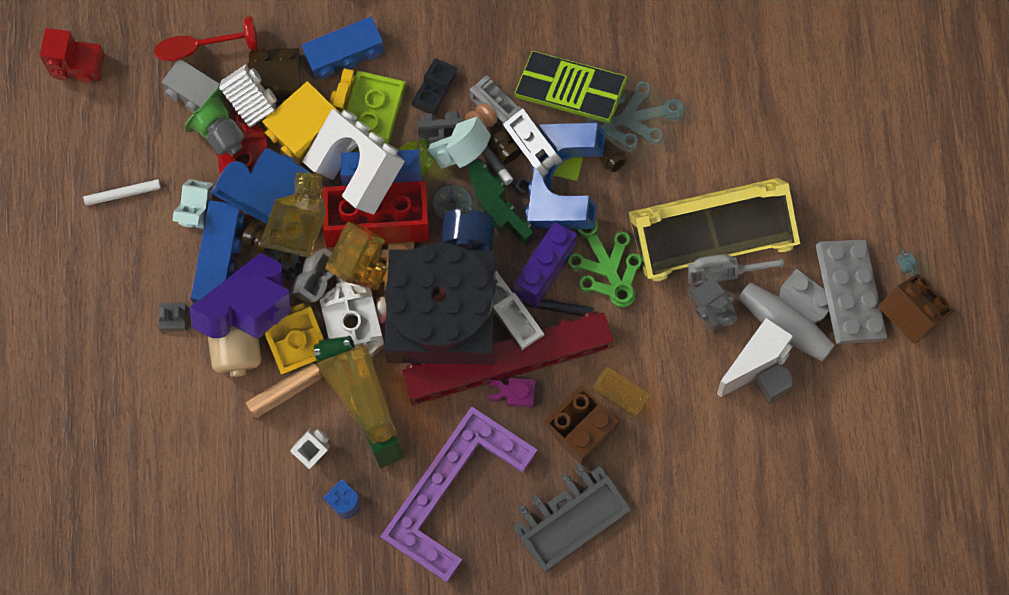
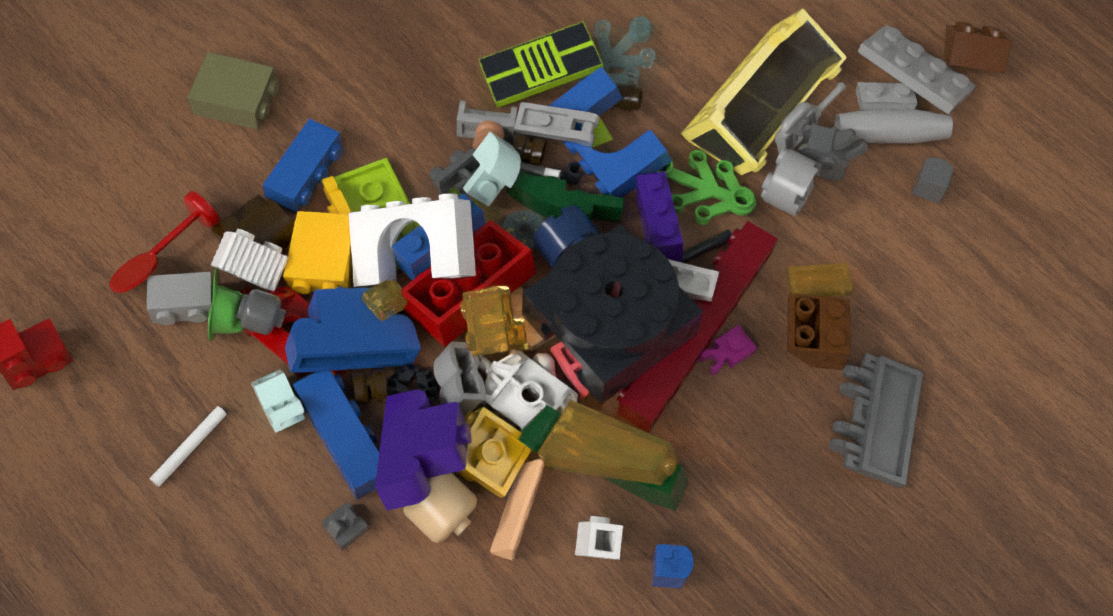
camera: 50 degrees left, 10 degrees down
(294, 224) = (407, 339): clear yellow slope -> none
(404, 528) = (749, 547): medium lavender plate -> none
(434, 86) = (417, 145): black slope -> none
(662, 307) = (791, 181): none -> light grey brick
(765, 350) = (901, 164): white slope -> none
(906, 262) = (934, 19): clear light blue plate -> none

